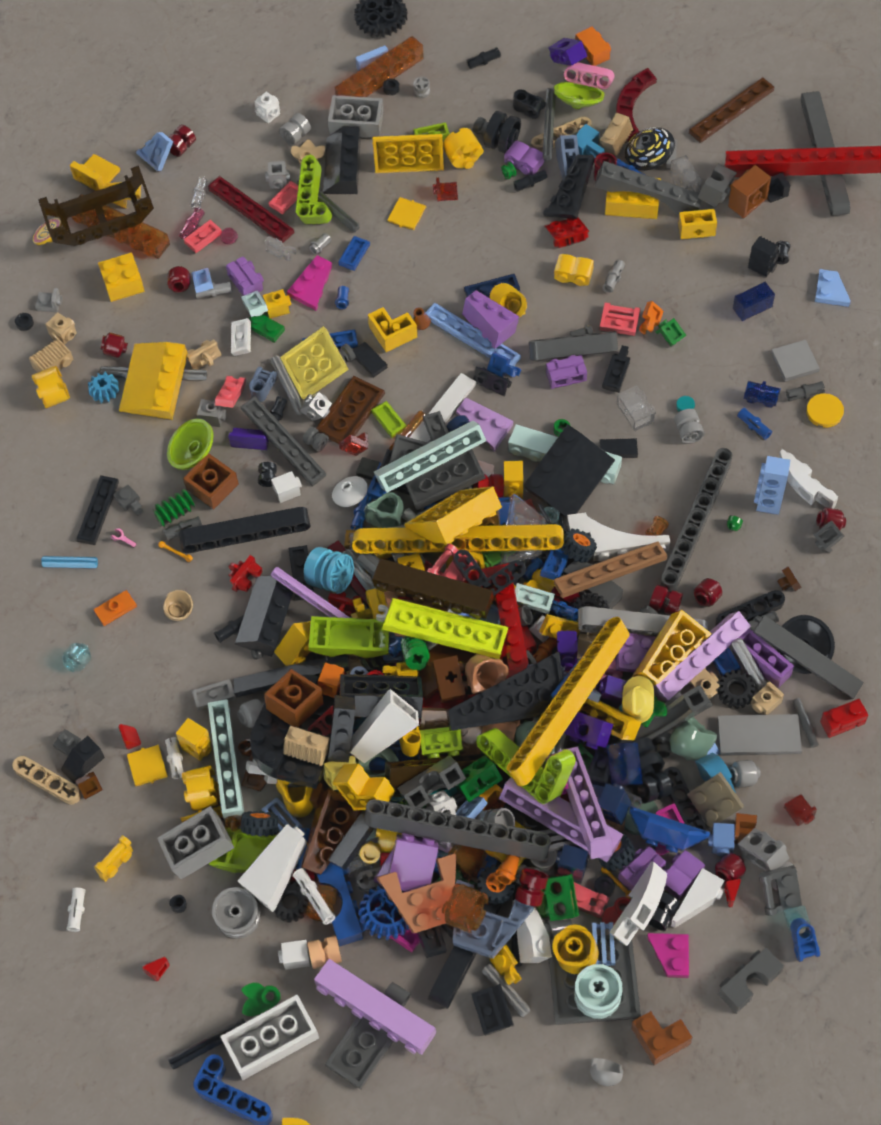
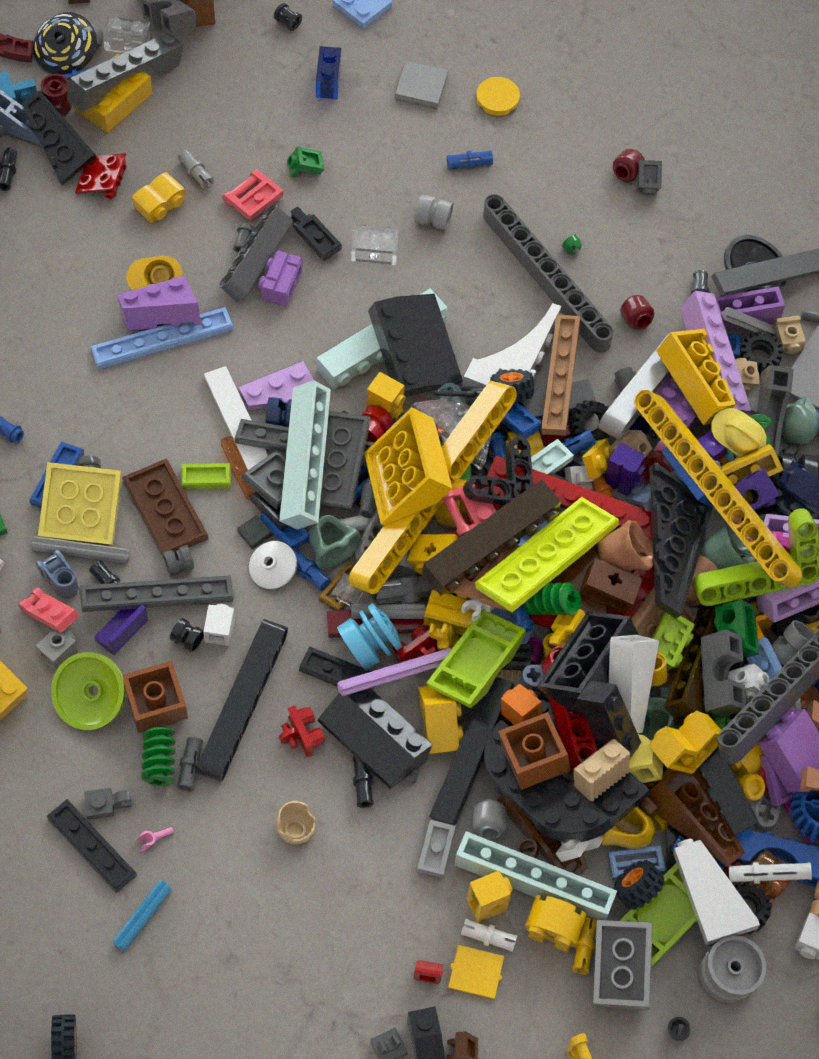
camera: 65 degrees left, 0 degrees up
(76, 657) = (283, 974): clear light blue head -> none
(115, 608) = (242, 897): orange plate -> none
(188, 558) = (233, 780): light orange hinge -> none
(232, 822) = (618, 910): clear orange hand -> none
(316, 406) = (138, 534): light grey brick -> none
(354, 445) = (218, 523): clear red bracket -> none
(370, 359) = (113, 449): black tile -> none
(392, 332) = (97, 408): yellow brick -> none
(421, 319) = (104, 371): dark orange cone -> none
(486, 286) = (114, 284): dark blue tile -> none
(491, 381) = (237, 351): black hinge -> none
(500, 365) = (226, 330): blue plate -> none
(560, 422) = (344, 330): green bush -> none
(616, 134) = (22, 57): tan brick -> none
(622, 447) = (411, 283): black tile -> none
(652, 316) = (273, 165): orange plate -> none
(657, 527) = (530, 311): clear orange bush -> none
(659, 598) = (624, 351): dark red wheel -> none
(685, 402) = (401, 203): teal tile -> none
(697, 224) = (197, 60): yellow brick -> none
(749, 609) = (679, 291): black beam -> none
(761, 393) = (444, 130): clear blue hips -> none
(763, 256) = (286, 30): black brick -> none
(771, 485) = (572, 177): light blue brick -> none
(789, 580) = (671, 237): reddish brown tile -> none
(805, 391) = (464, 97): dark grey pin -> none
(807, 487) = (561, 161): white slope -> none

